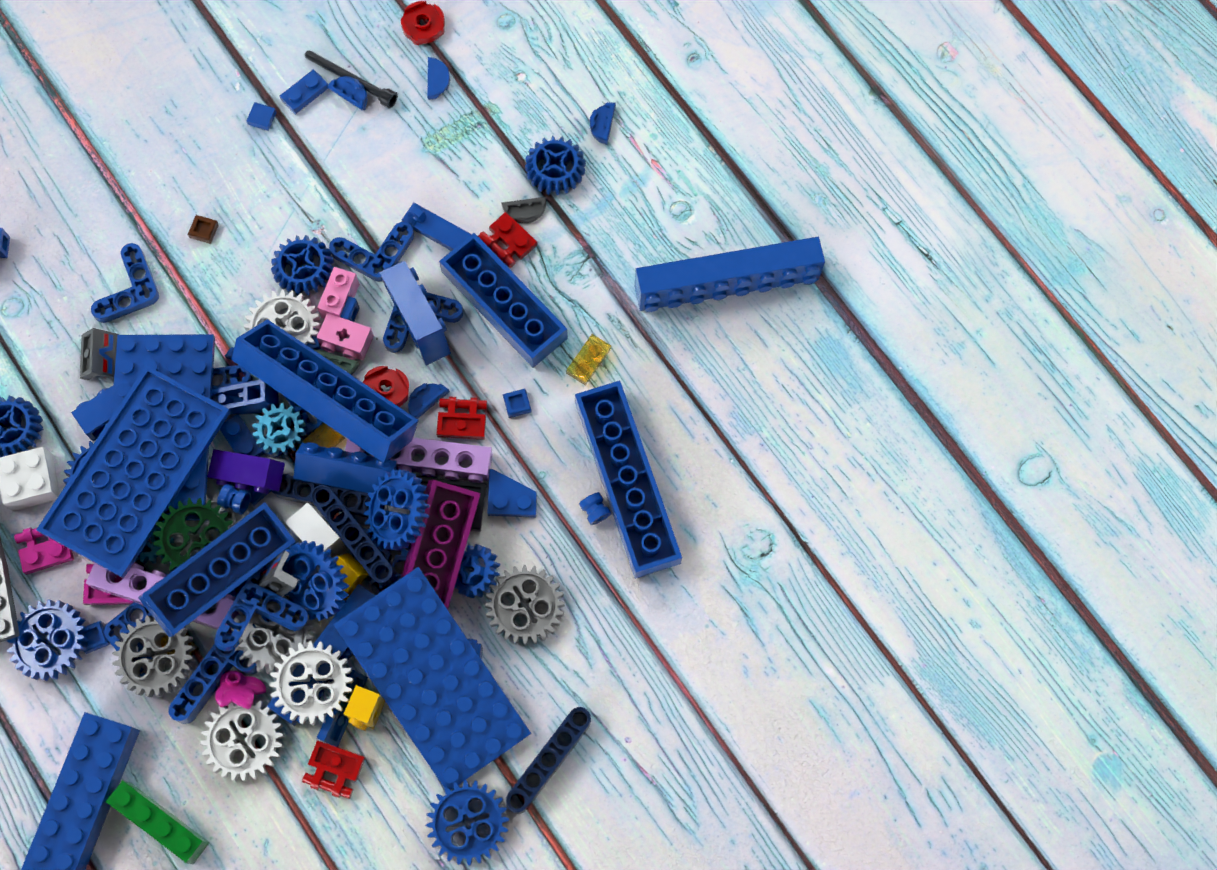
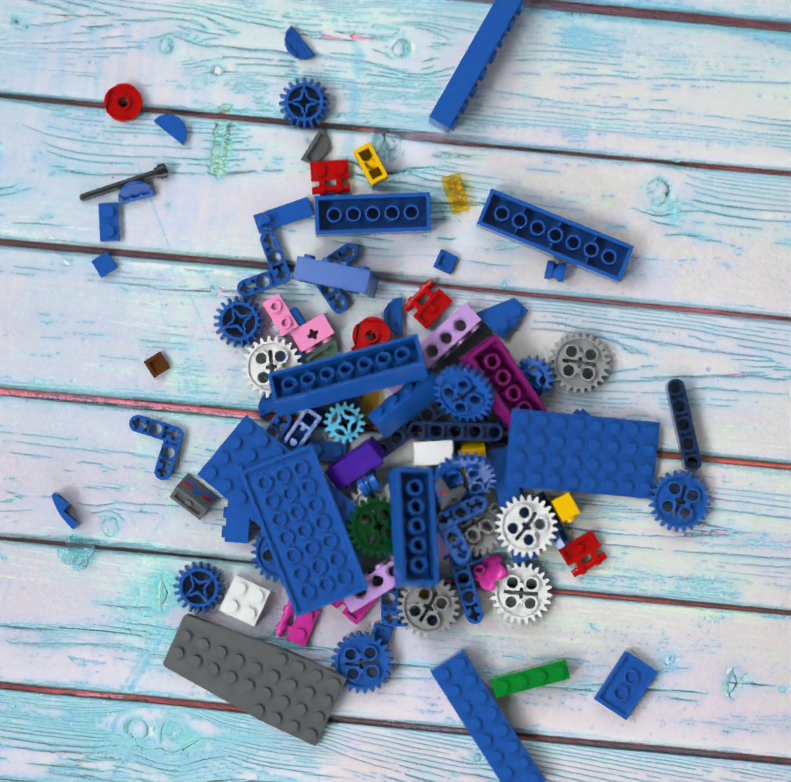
camera: 50 degrees left, 15 degrees up
(548, 261) = (370, 164): none -> yellow brick

